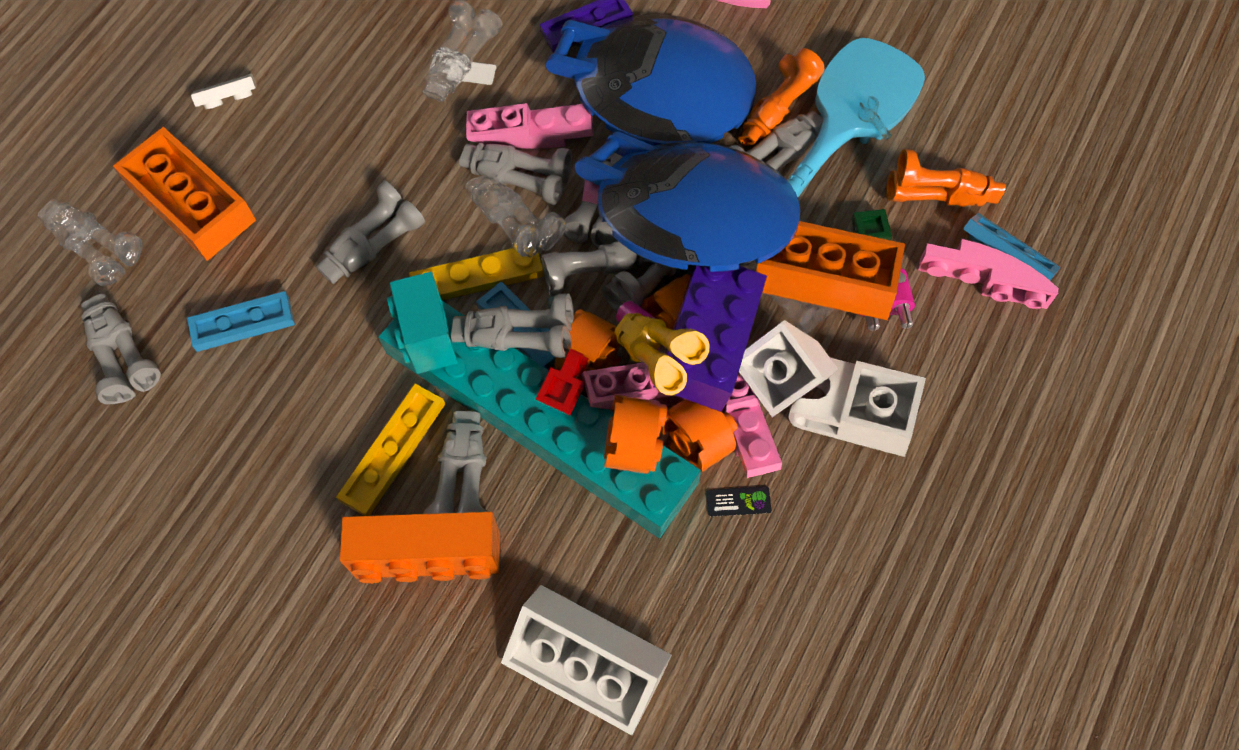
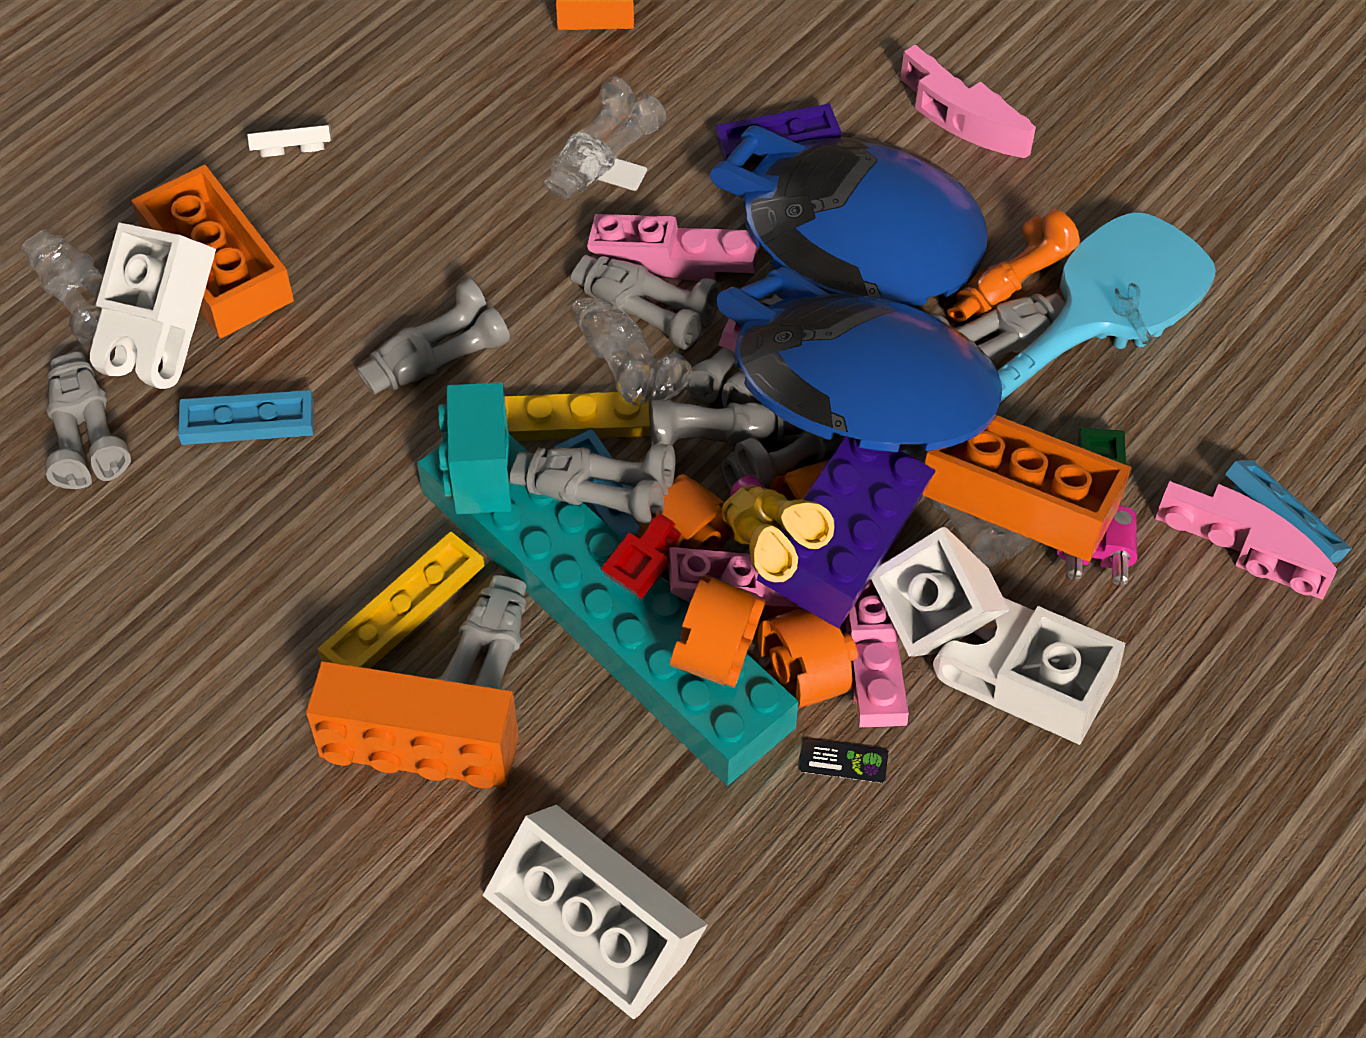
camera: 10 degrees right, 10 degrees down
(145, 248) = (149, 303): none -> white brick
(954, 187) = (1231, 421): orange piece -> none

